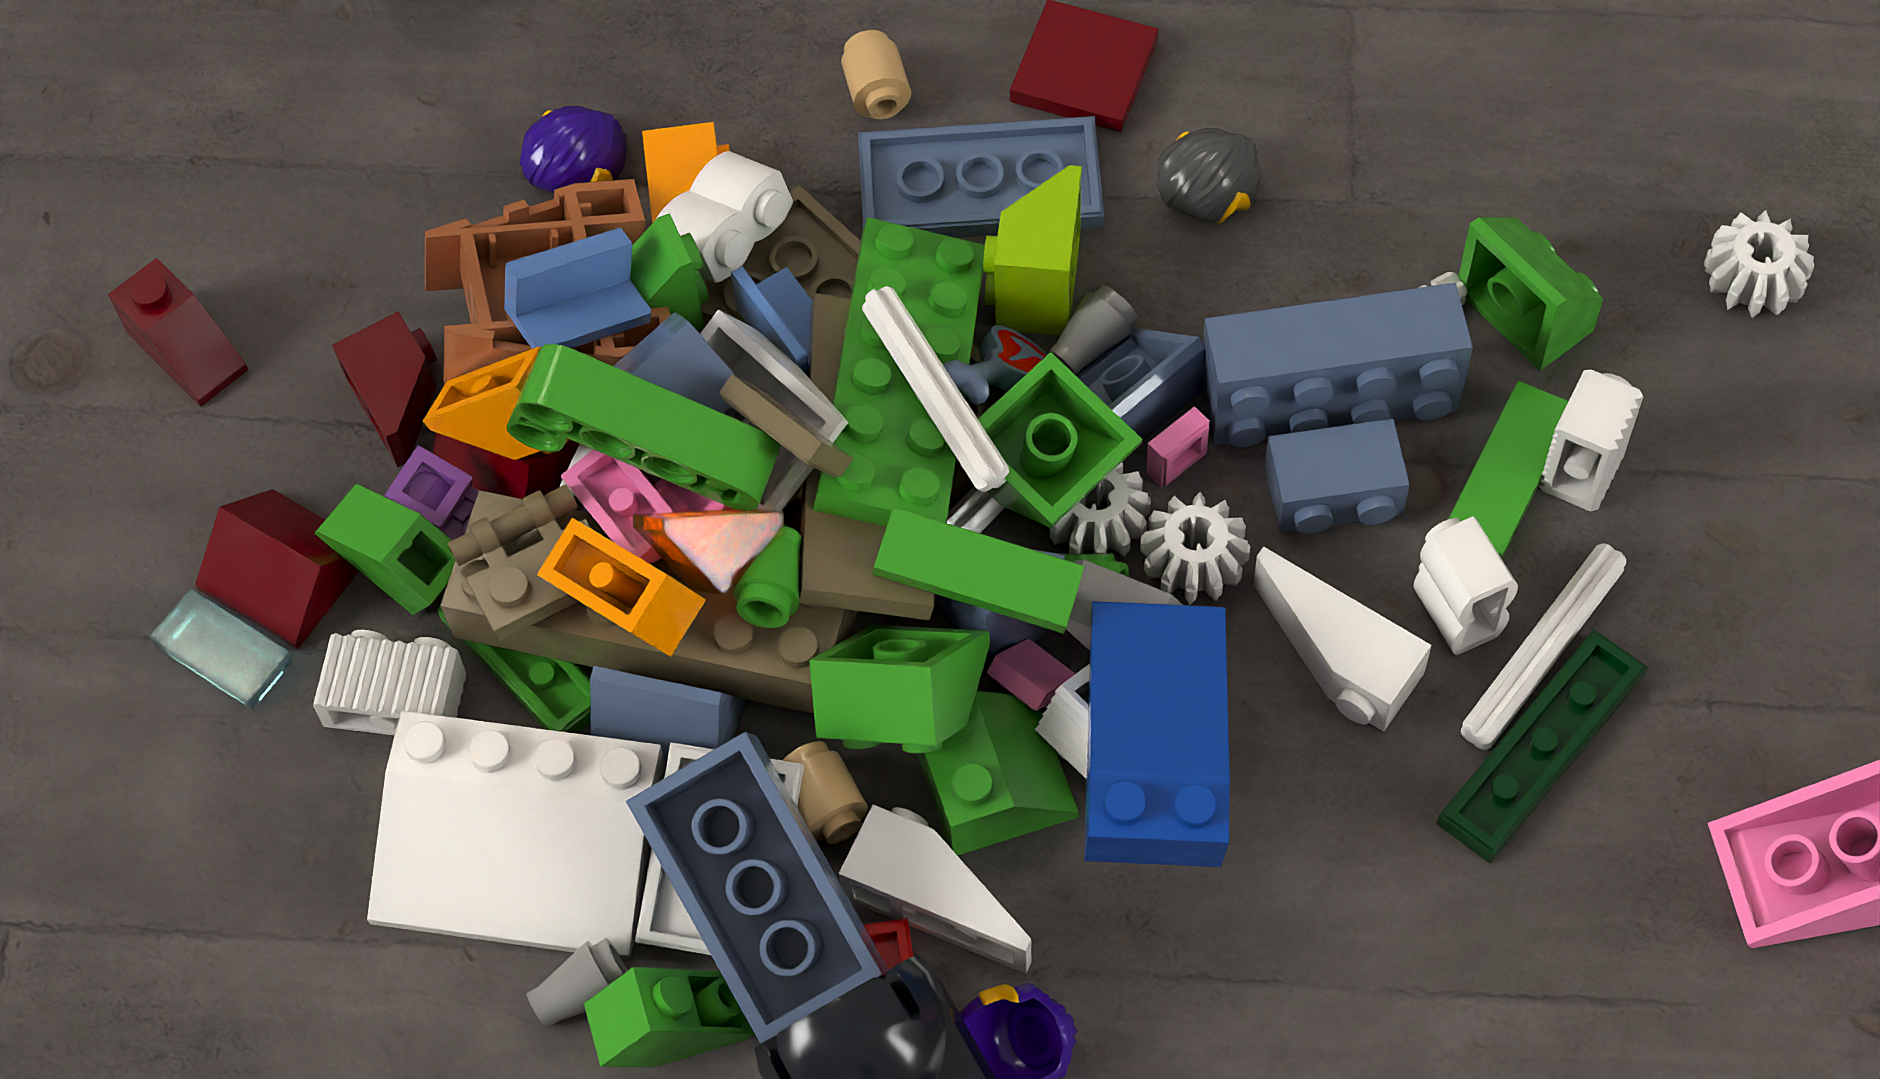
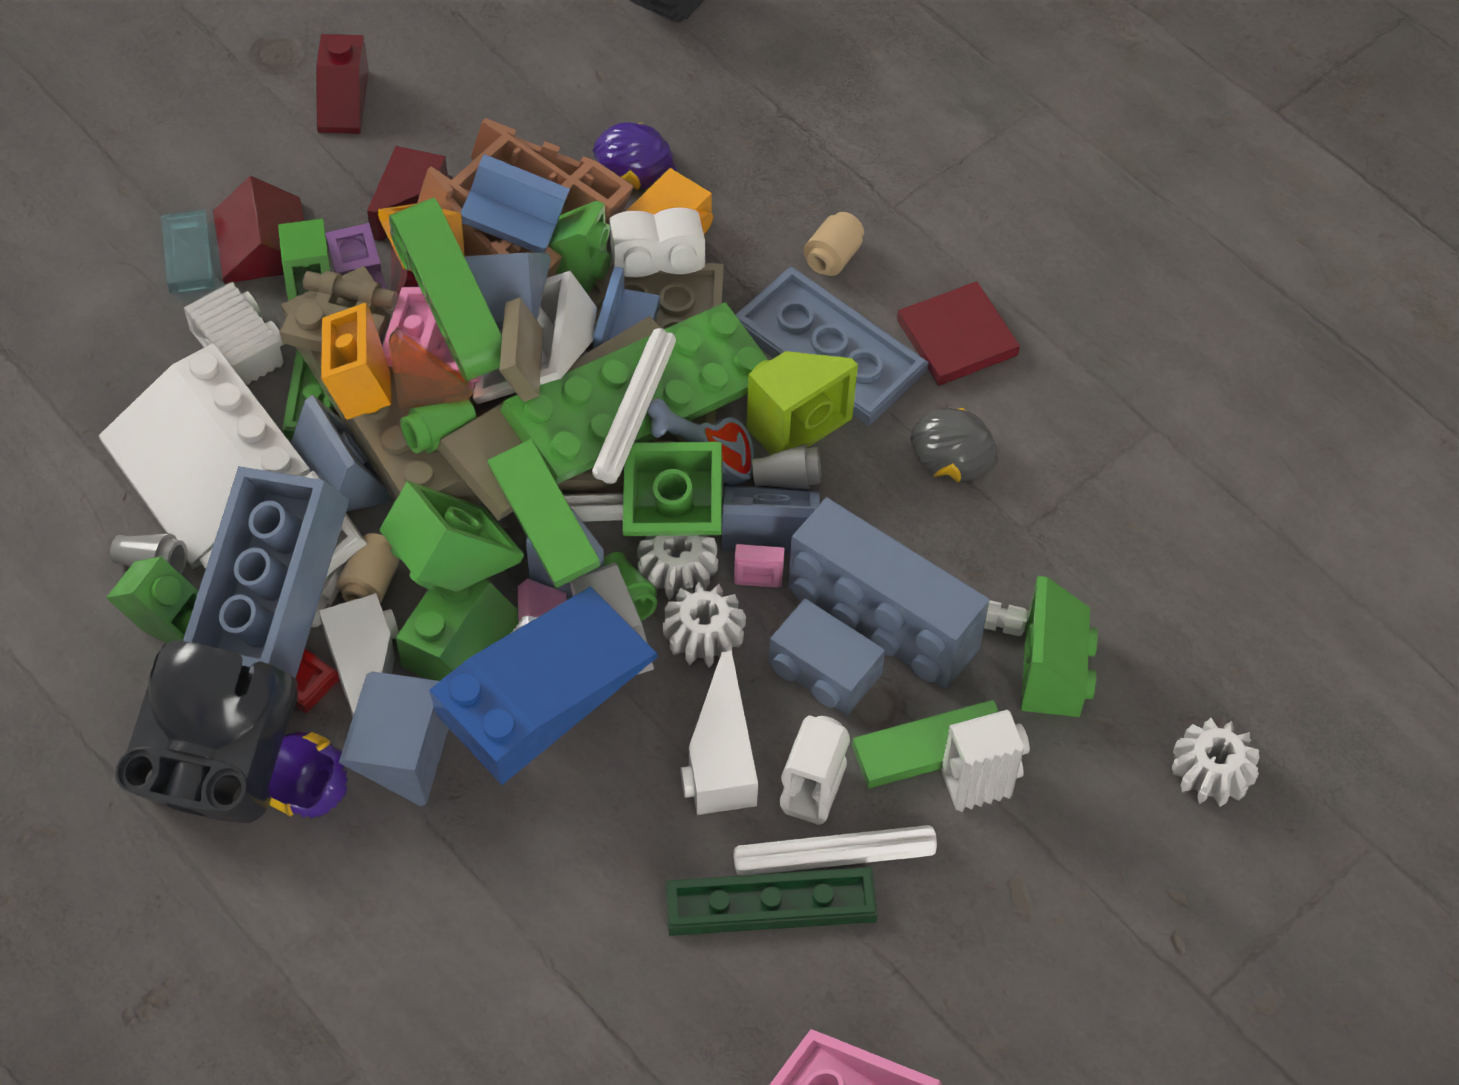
camera: 40 degrees right, 5 degrees down
(1058, 914) = (396, 735): none -> sand blue slope

